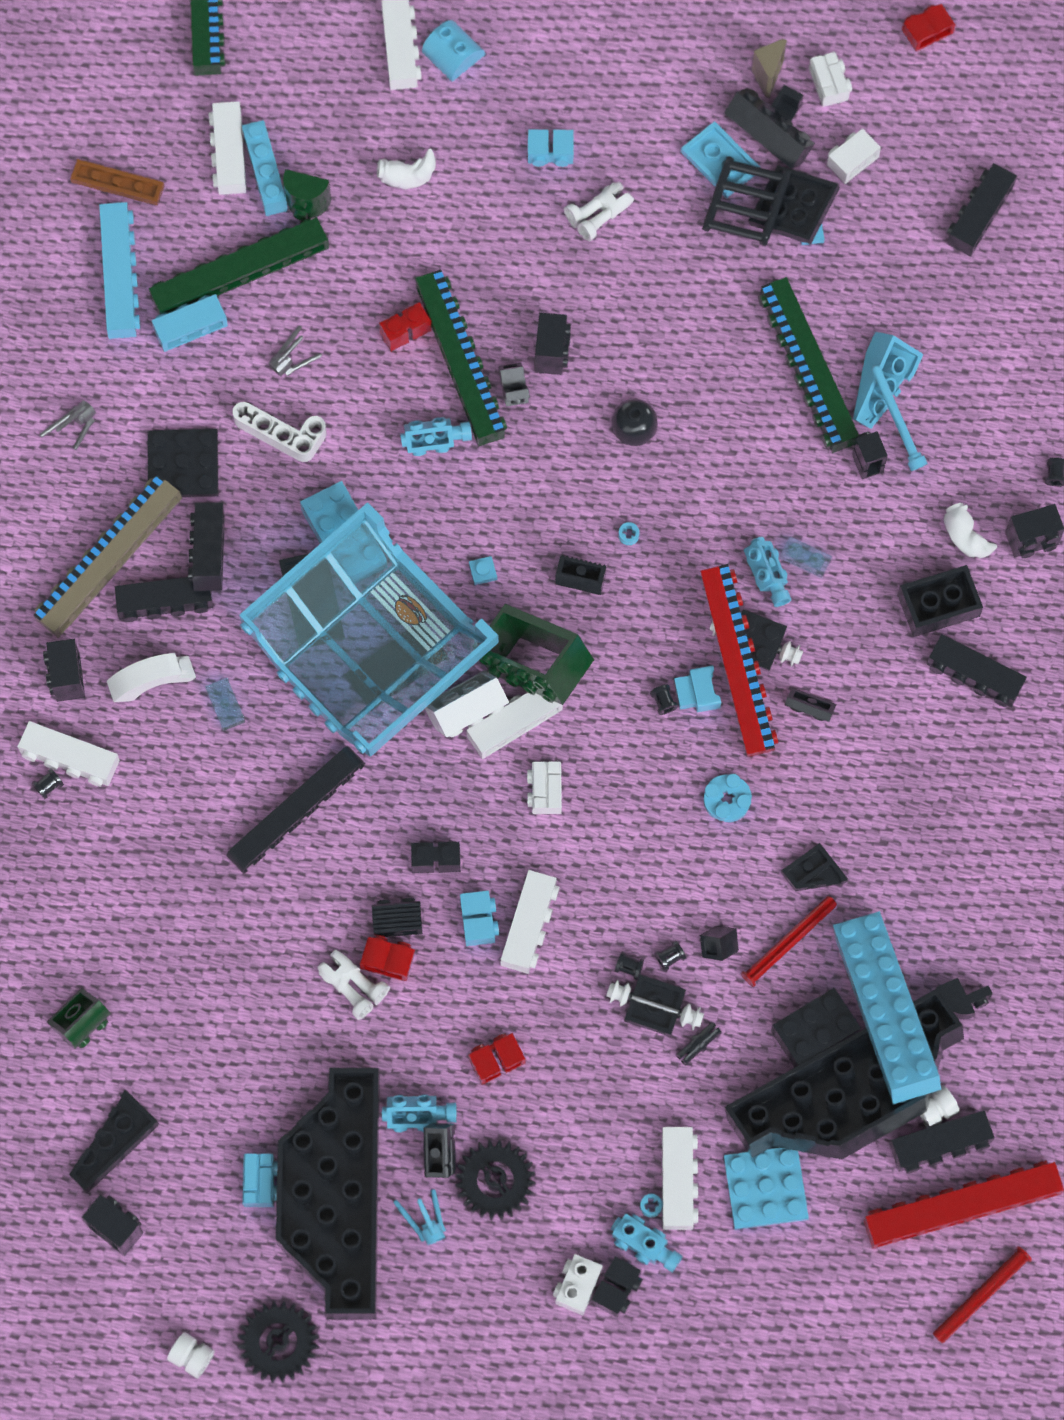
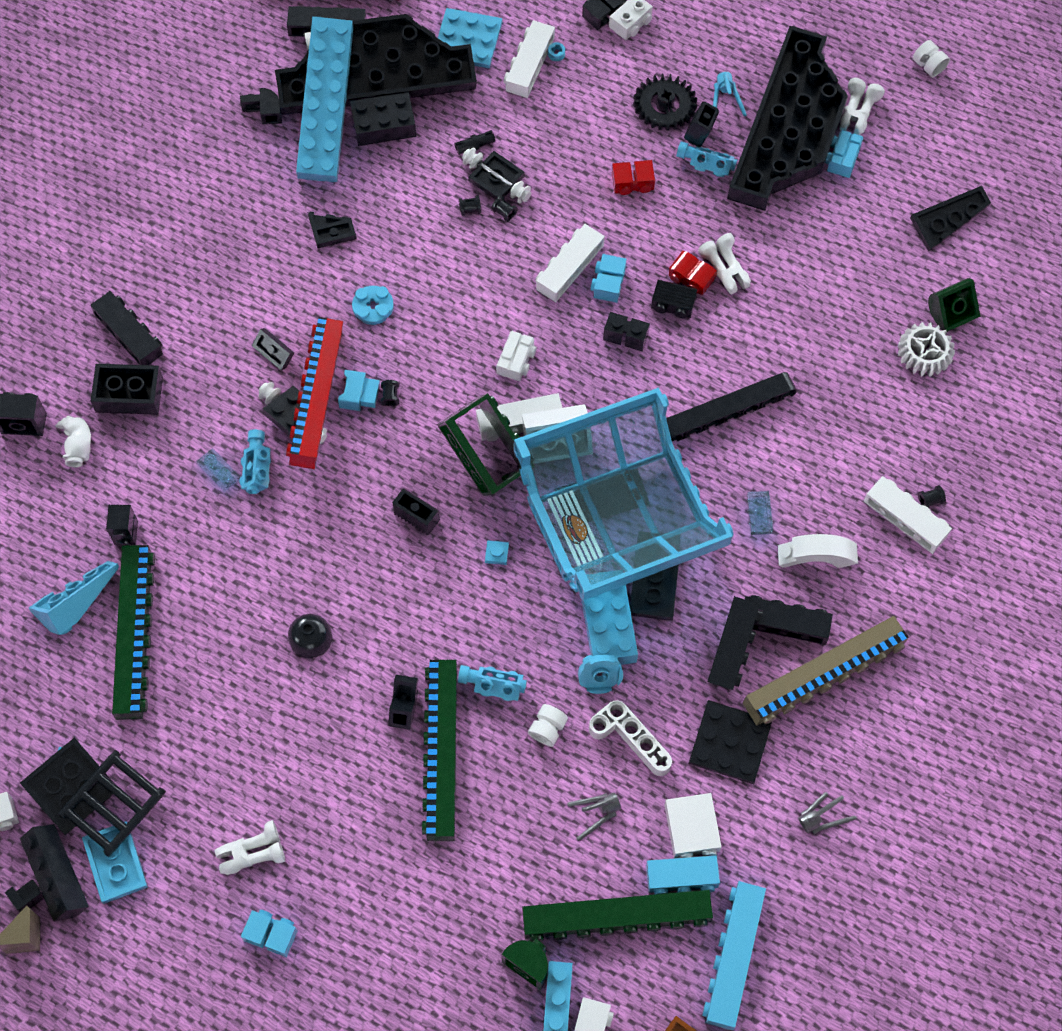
camera: 160 degrees left, 5 degrees down
(64, 670) = (893, 578): black brick -> none
(86, 953) = (920, 338): none -> white gear
(112, 1224) = (967, 151): black brick -> none
(194, 368) = (692, 826): none -> white brick
(254, 1242) = (856, 89): none -> white piece
(262, 1361) = (866, 44): black gear -> none
(330, 474) = (593, 665): none -> medium azure plate
(365, 412) = (548, 723): none -> white wheel
(395, 328) = (470, 795): red piece -> none
(405, 175) = (425, 957): white animal -> none
(552, 343) = (353, 724): black brick -> none
(635, 530) = (356, 533): medium azure bush -> none
(637, 1240) = (569, 27): medium azure brick -> none
(719, 943) = (428, 202): black panel -> none
(788, 941) = (373, 188): red axle -> none
(916, 460) = (84, 515): medium azure piece -> none

